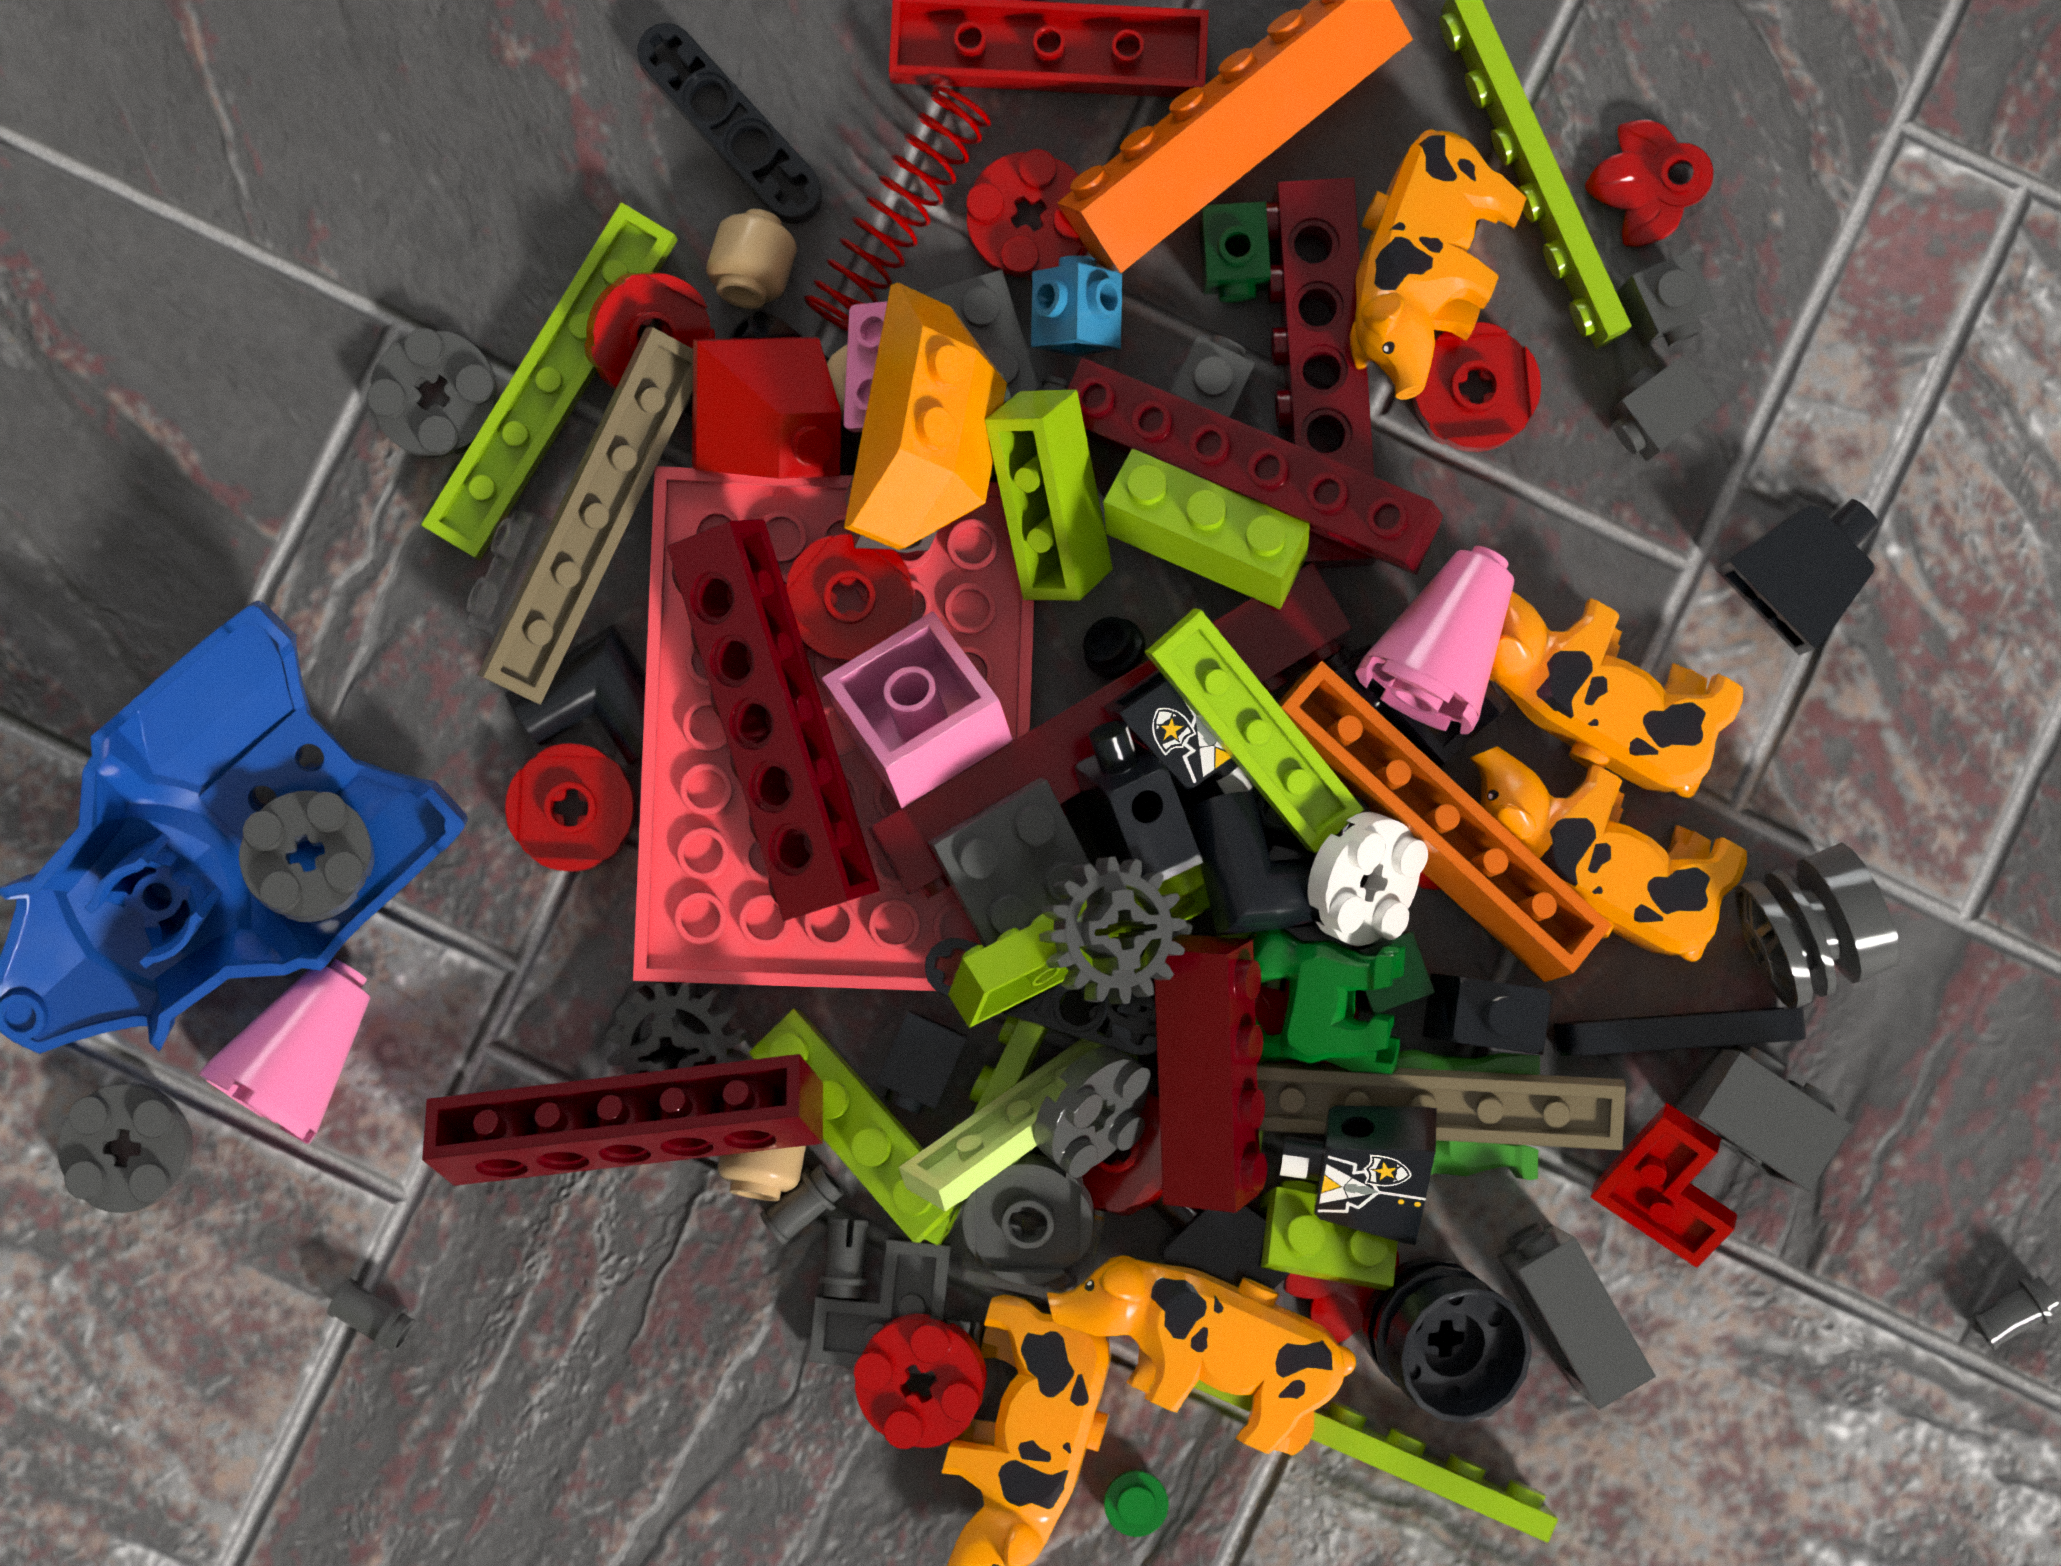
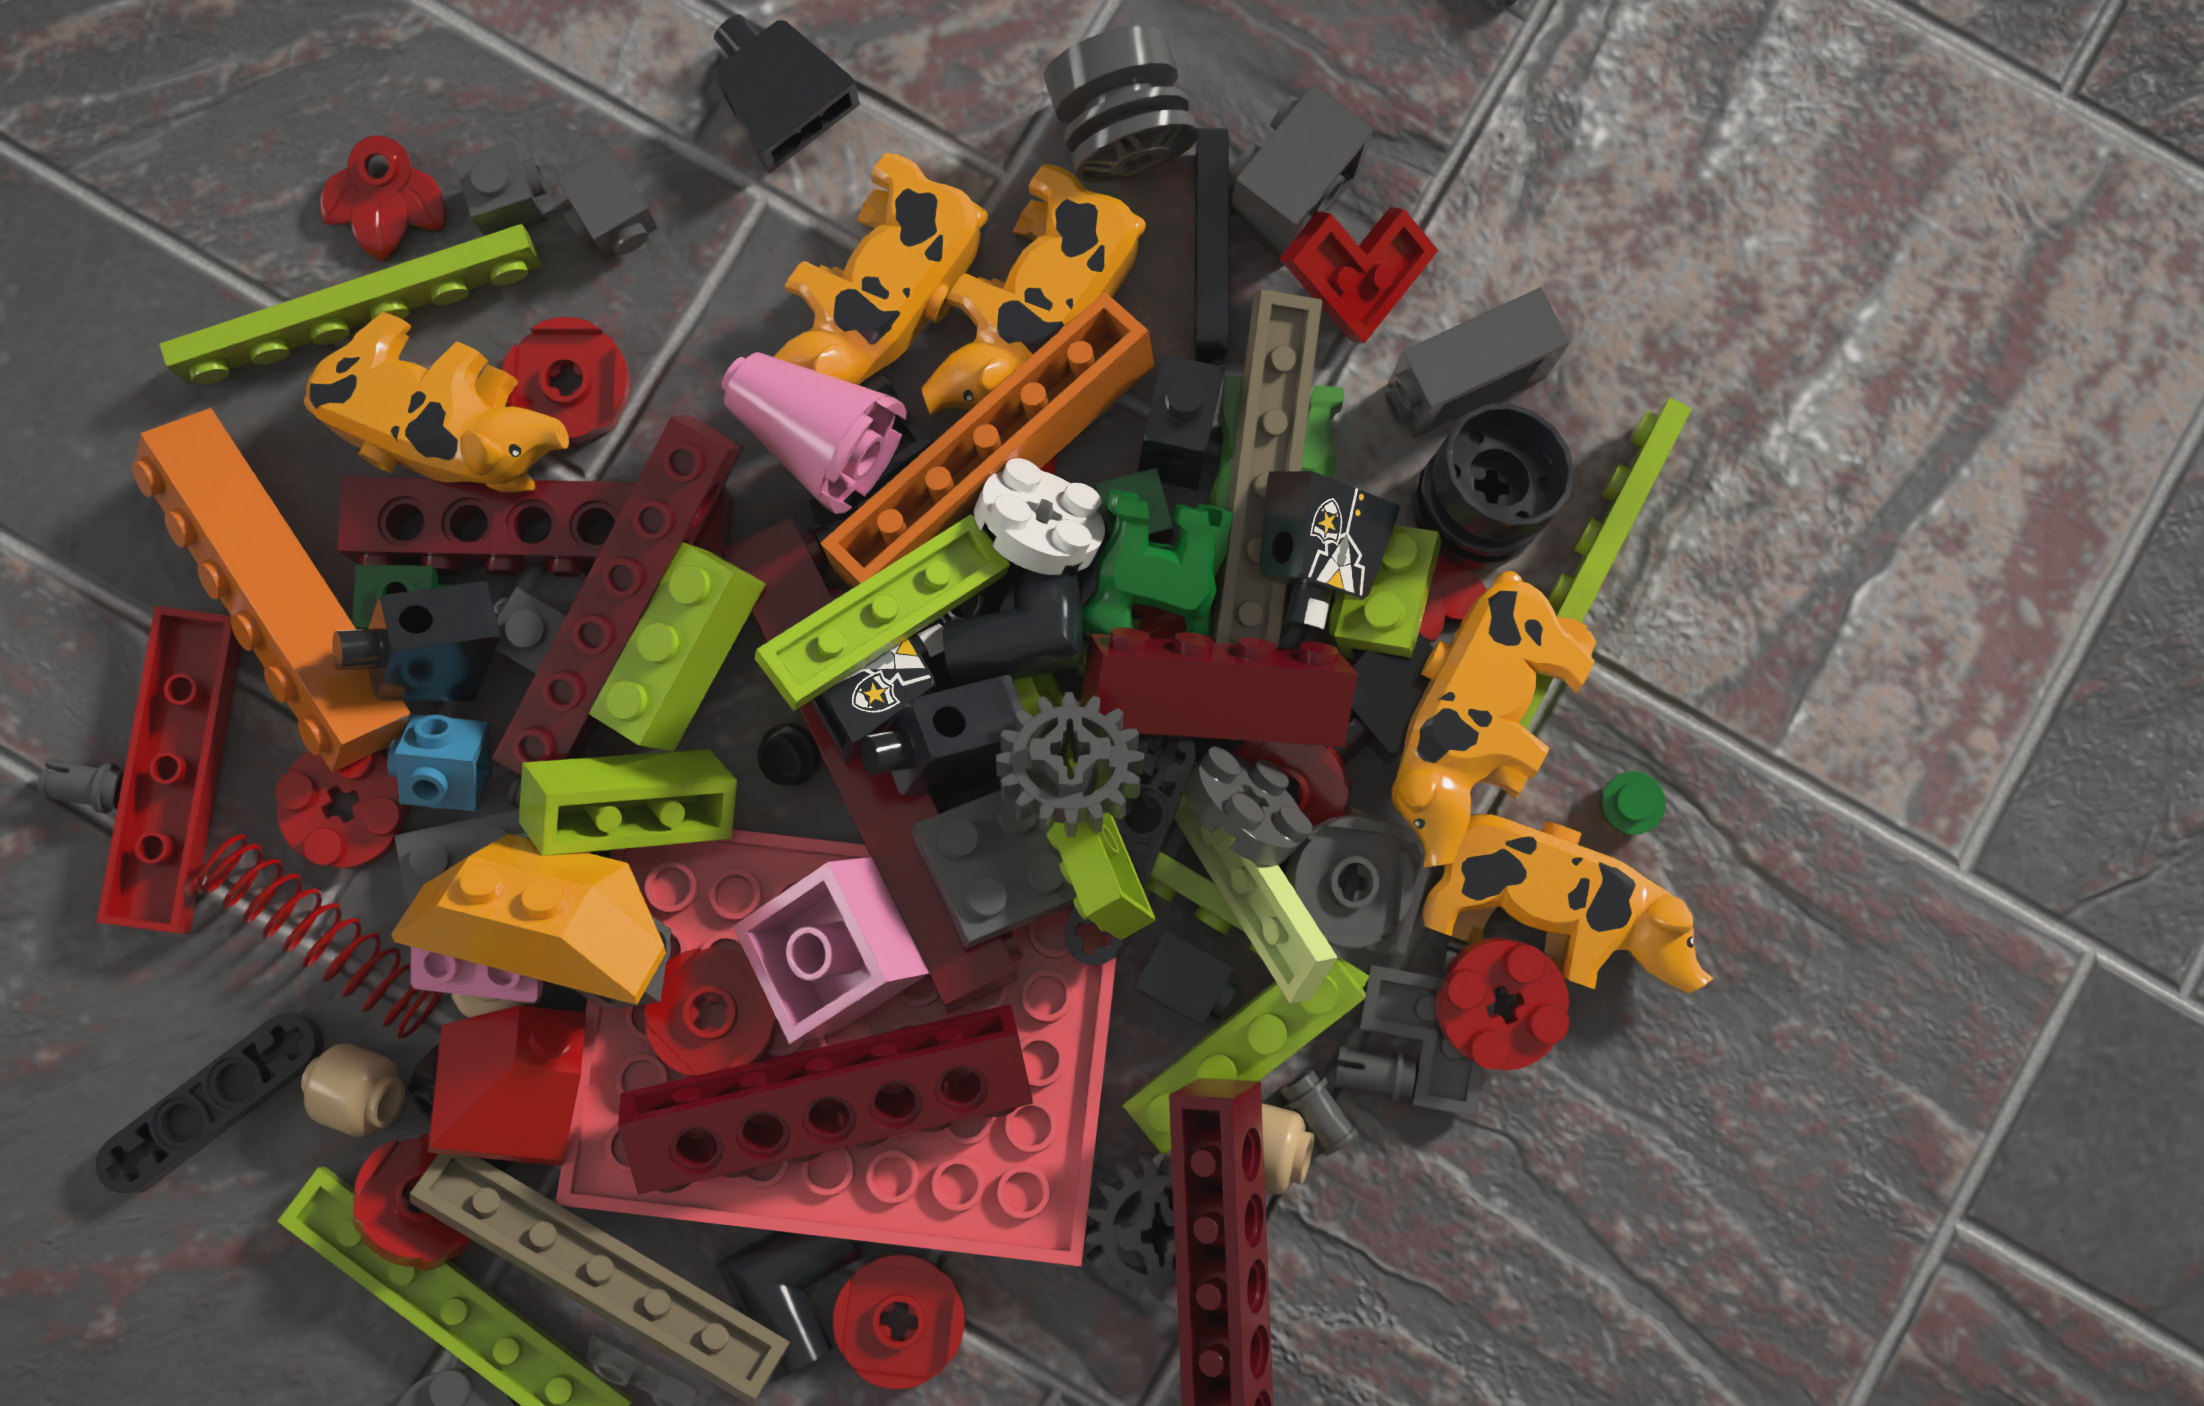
camera: 90 degrees left, 5 degrees down
(1188, 280) = (425, 643): none -> black torso

